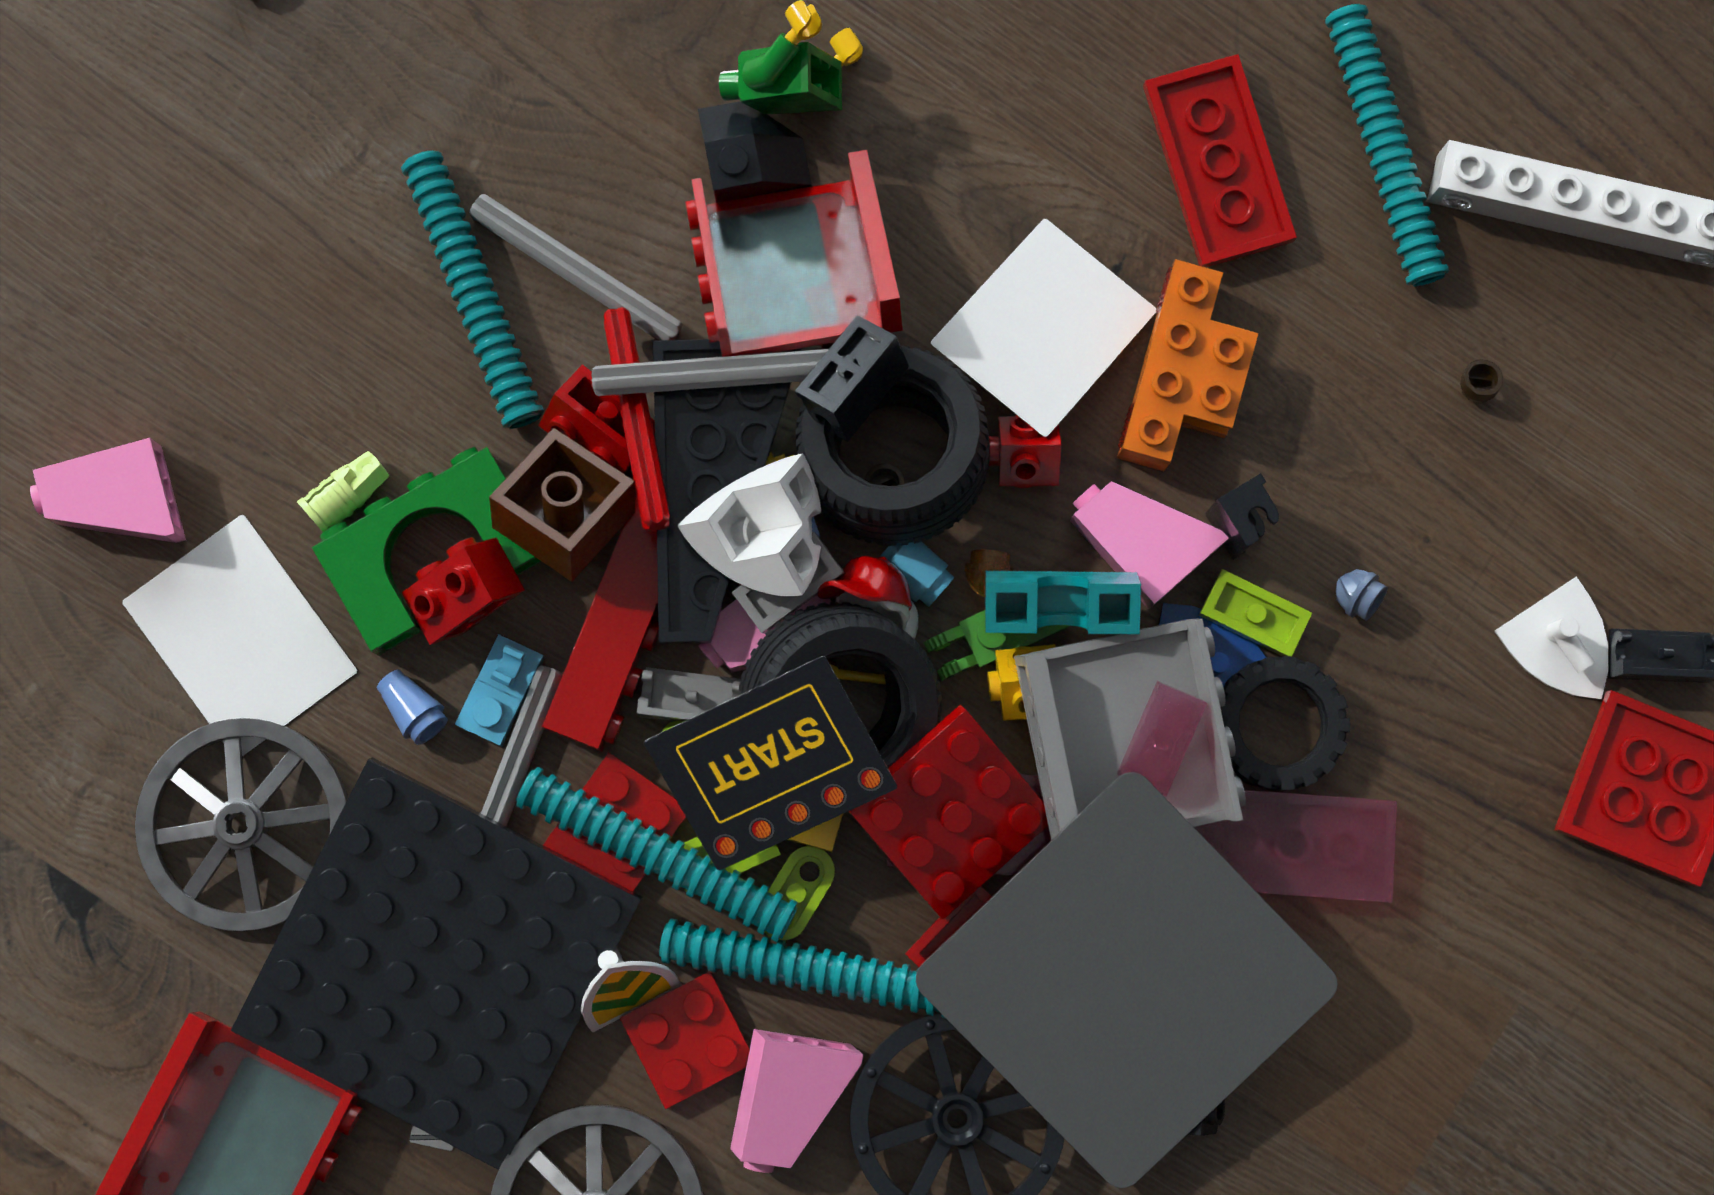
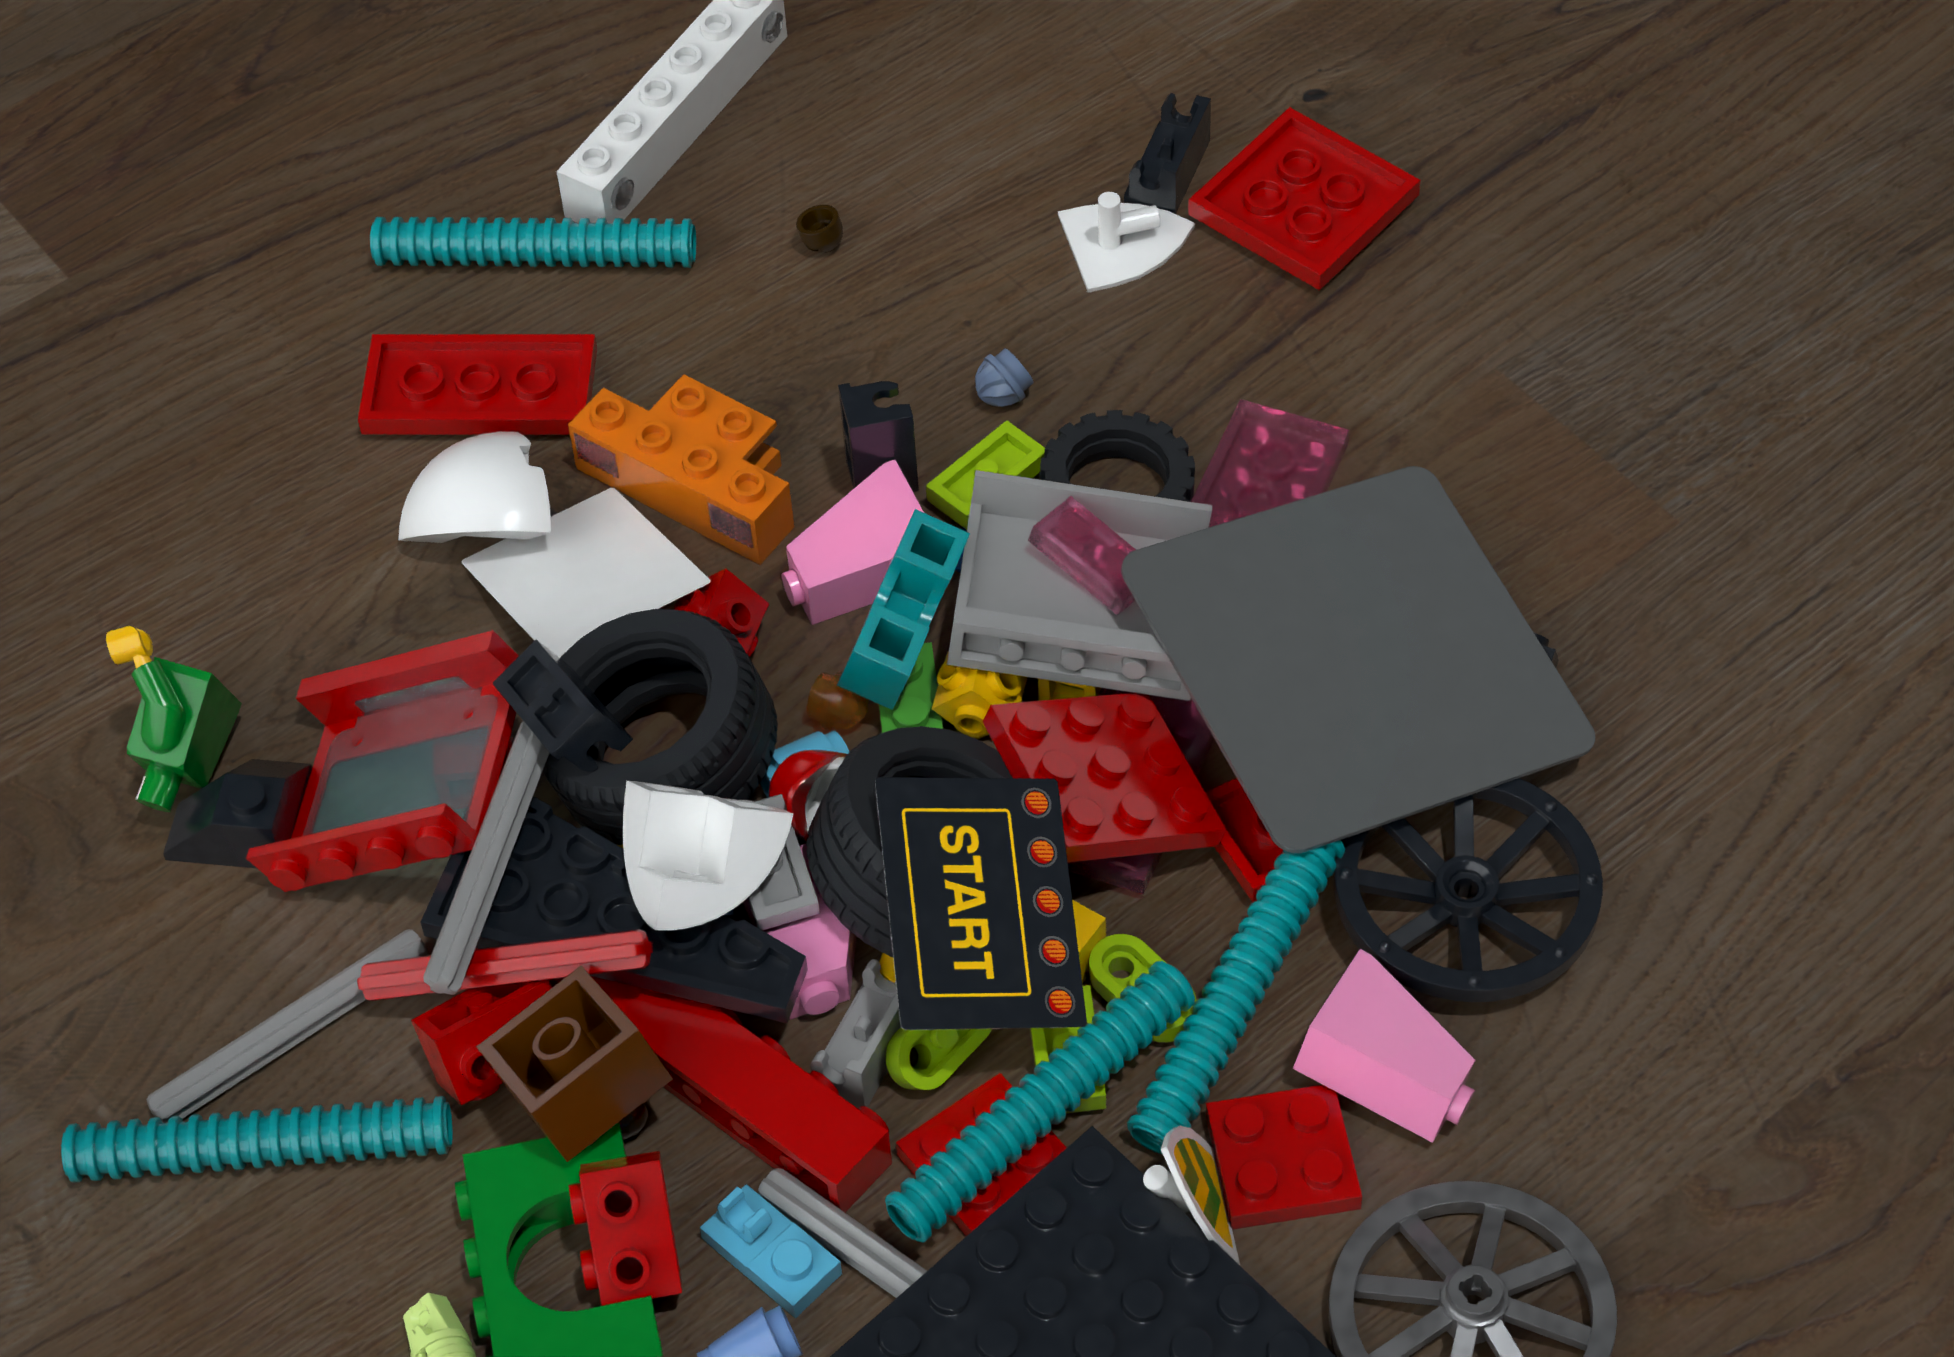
camera: 65 degrees left, 30 degrees down
(1094, 210) = (478, 491): none -> white brick

